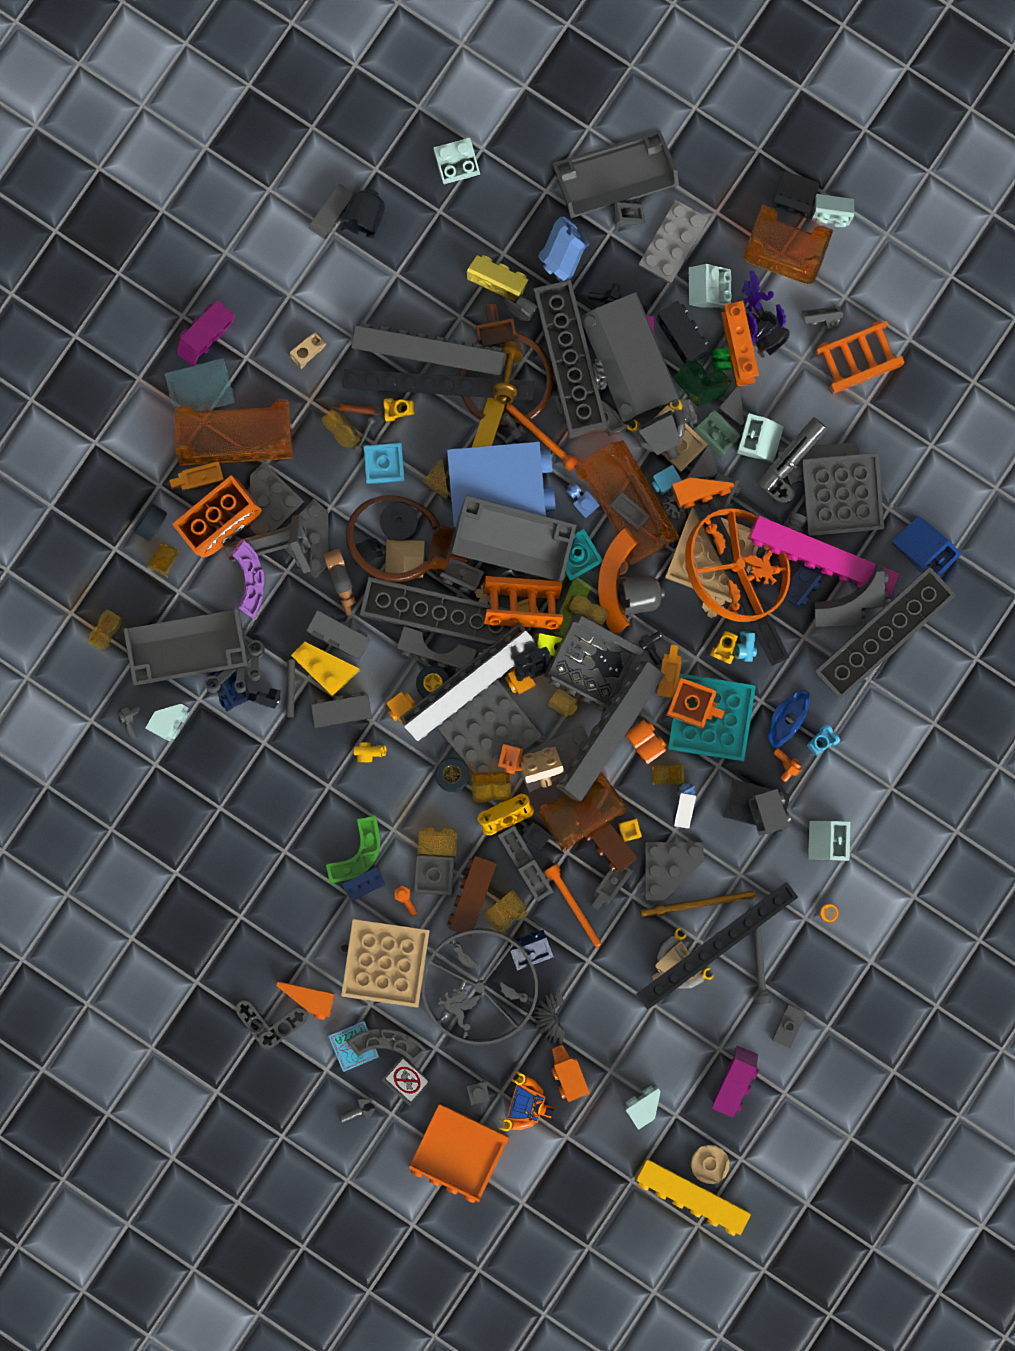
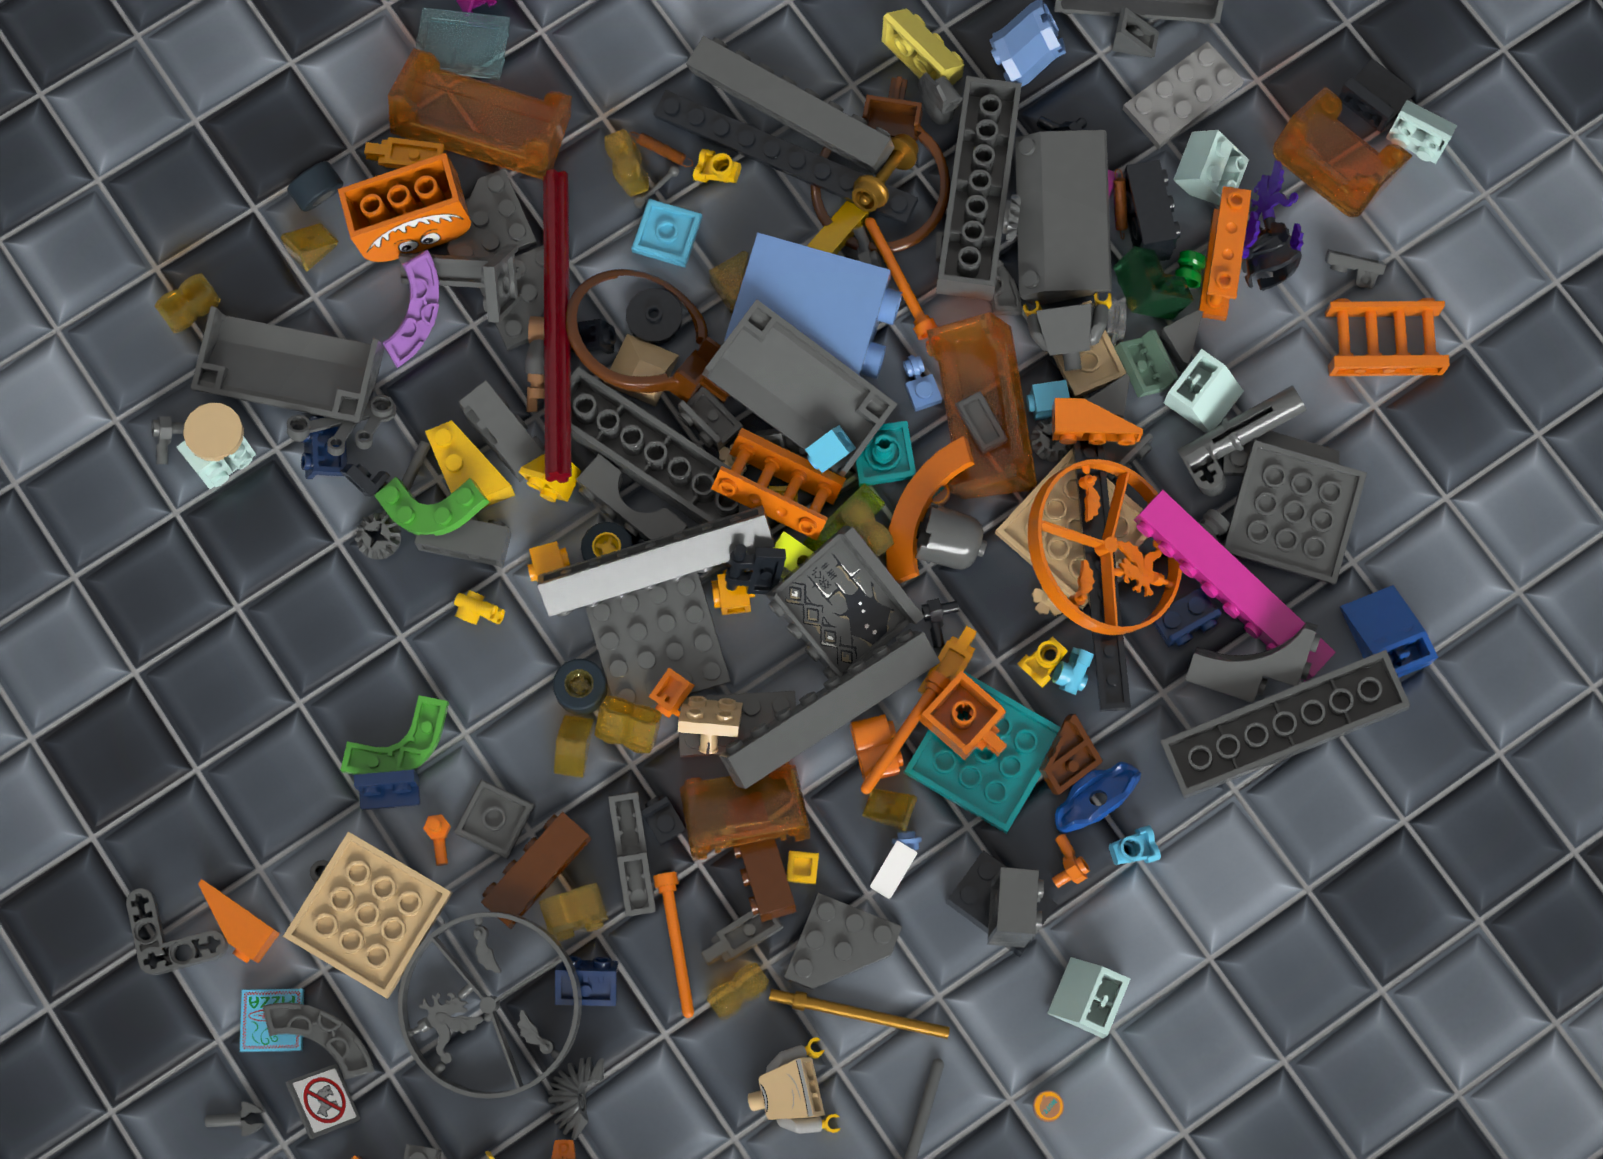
camera: 25 degrees right, 10 degrees down
(165, 710) = (213, 431): none -> tan tile
(294, 723) = (380, 549): none -> dark grey gear
(307, 350) = (626, 48): tan leg -> none
(320, 709) = (431, 518): none -> bright green plate
(346, 562) = (556, 342): none -> dark red axle
(380, 652) = (535, 474): none -> yellow slope
(437, 843) = (518, 774): clear yellow brick -> none
(462, 811) = (573, 746): none -> clear yellow slope
(505, 814) = (632, 771): yellow piece -> none
(546, 569) = (829, 449): none -> medium azure brick
(563, 704) = (777, 646): clear yellow brick -> none
(625, 914) = (745, 986): none -> clear yellow brick
(662, 334) = (1120, 203): none -> dark orange piece
(667, 690) = (935, 685): none -> orange piece
(716, 945) = (859, 1083): black plate -> none
(763, 701) = (1069, 756): none -> reddish brown wing

